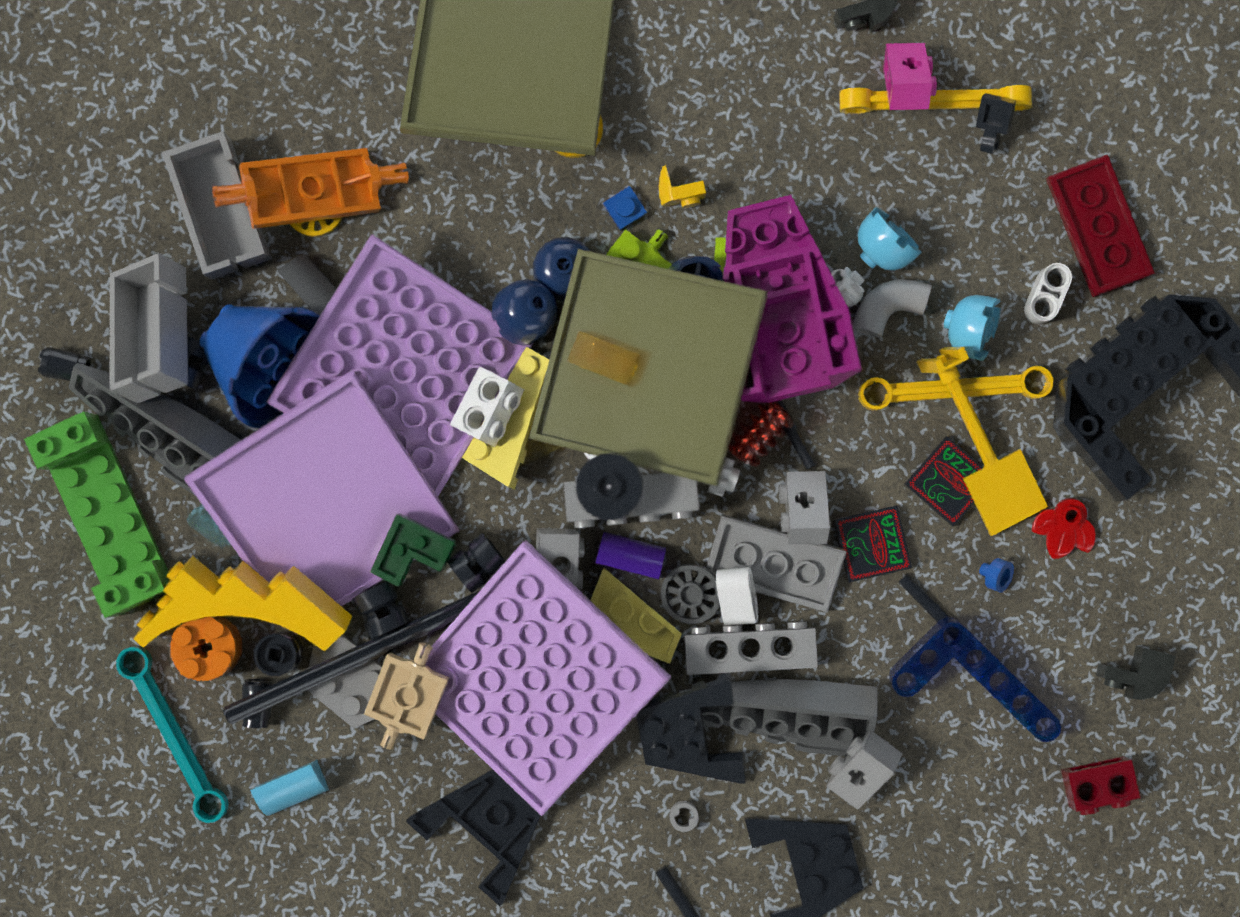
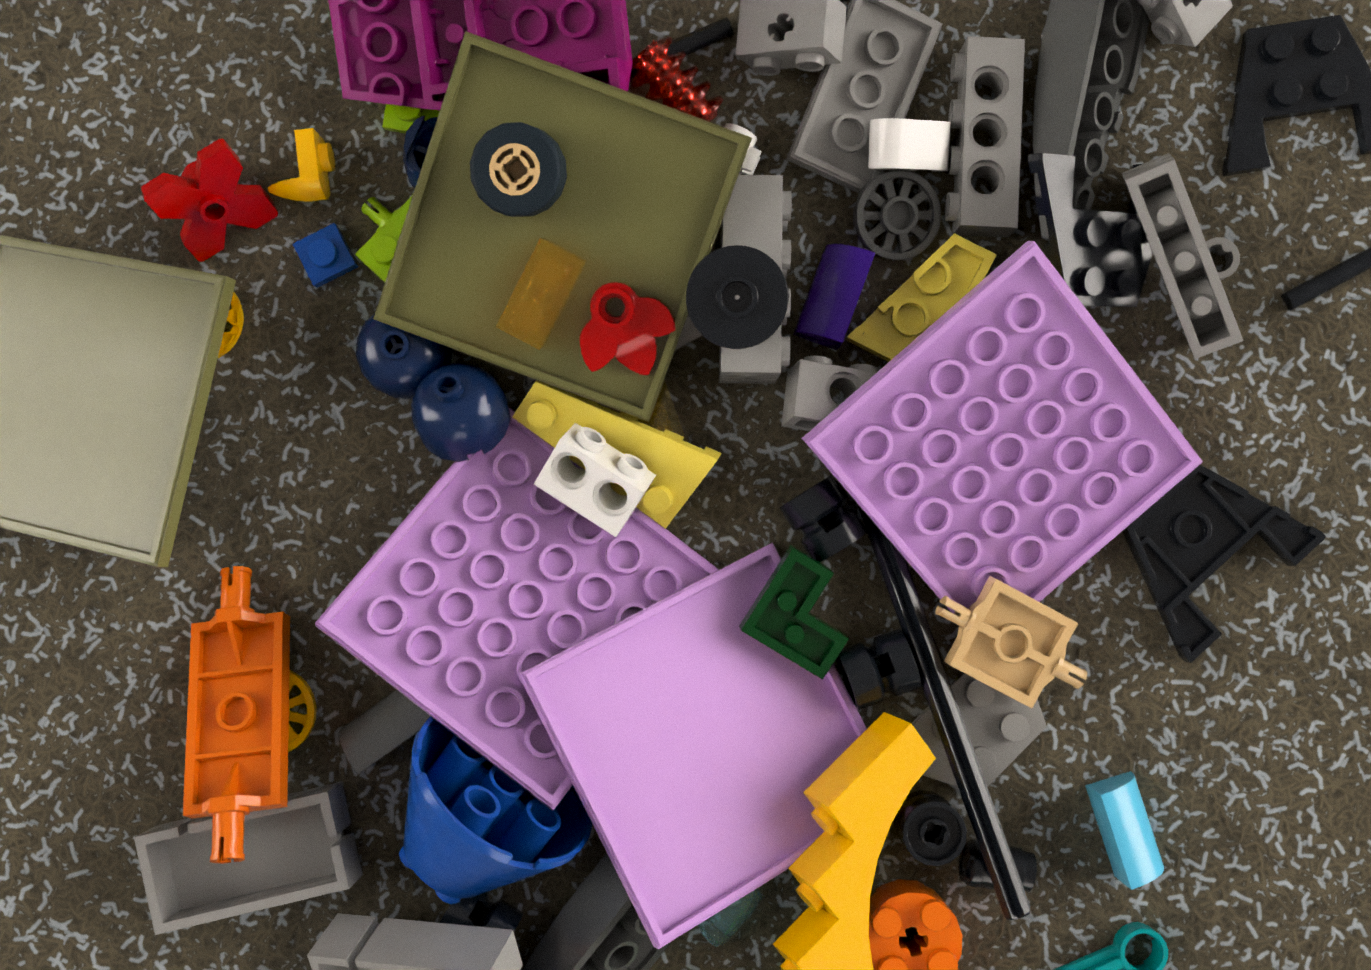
camera: 85 degrees left, 0 degrees up
(582, 416) = (624, 336): none -> red plate
(653, 128) = (209, 199): none -> red plant
(677, 786) = (1182, 255): none -> light grey brick
(686, 344) = (537, 172): none -> black wheel

